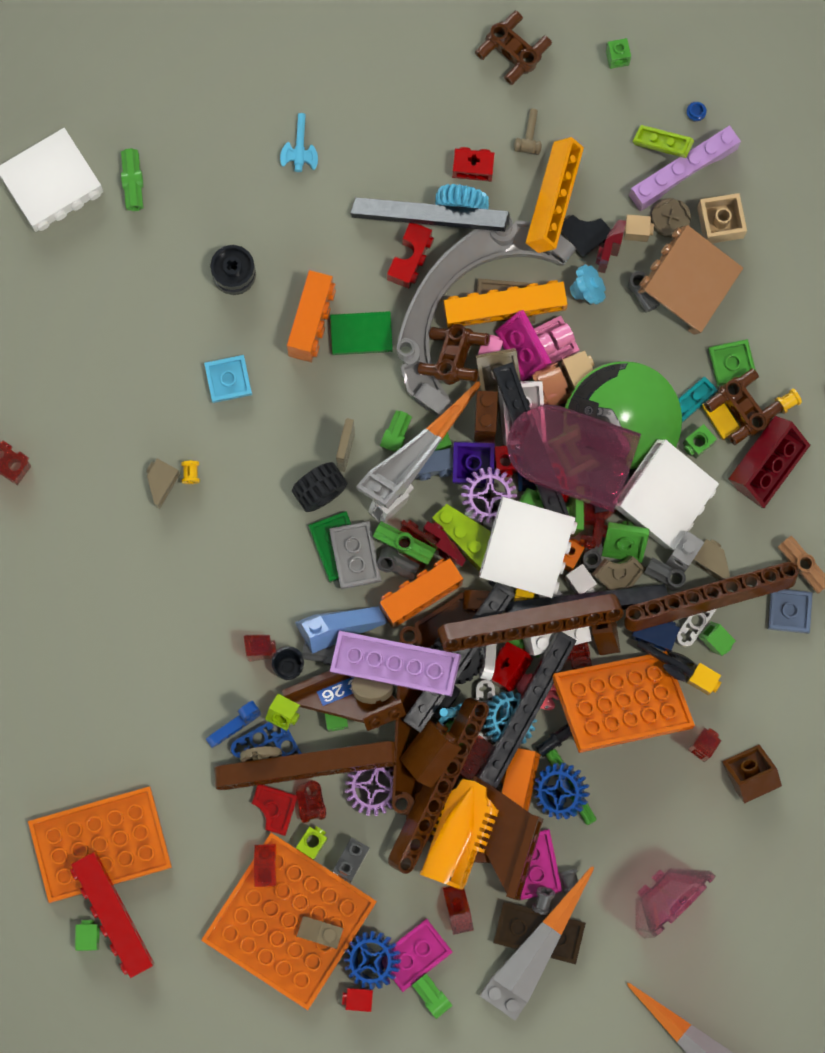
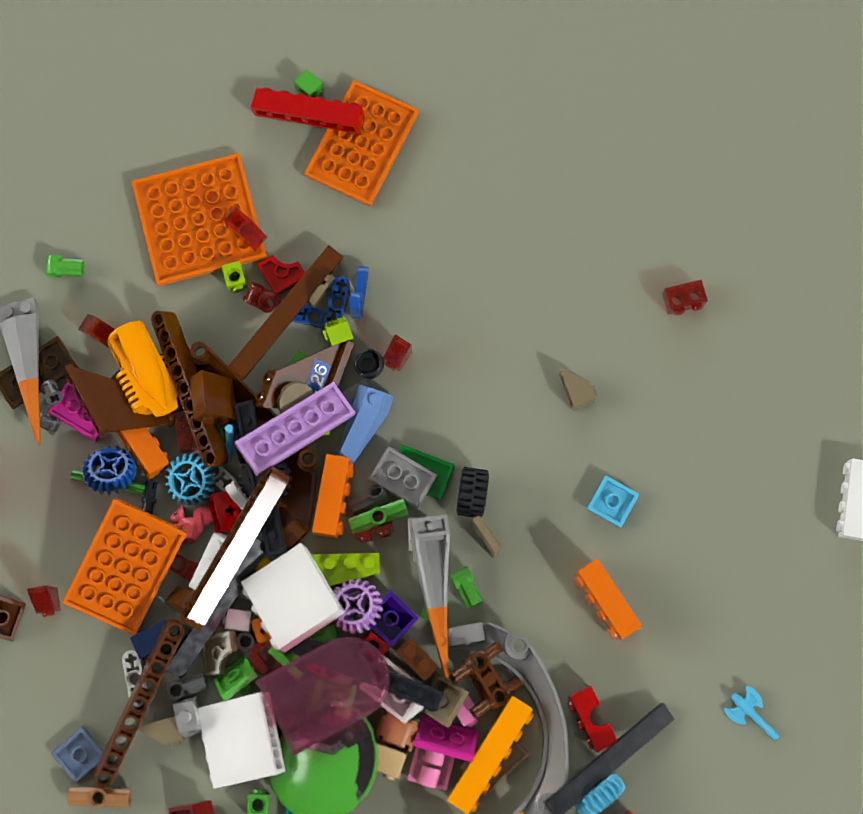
camera: 135 degrees right, 0 degrees up
(132, 179) = (829, 564): bright green piece -> none
(190, 472) = (566, 416): yellow bush -> none
(223, 273) = (705, 574): black wheel -> none
(320, 932) = (169, 228): dark tan slope -> none
(351, 860) = (199, 292): dark grey hips -> none
(358, 999) = (107, 218): red brick -> none
(361, 333) = (564, 629): green tile -> none
(369, 806) = (223, 335): lavender gear -> none
(377, 967) = (116, 239): blue gear -> none
(419, 953) = (101, 280): dark pink tile -> none
(439, 464) = (414, 596): sand blue brick -> none
(445, 547) = (349, 544): dark red plate -> none
(526, 709) = (182, 494): black tile -> none
(676, 664) = (118, 633): black piece -> none
(705, 679) = (89, 644): yellow brick -> none
(717, 638) = (108, 679): bright green brick -> none

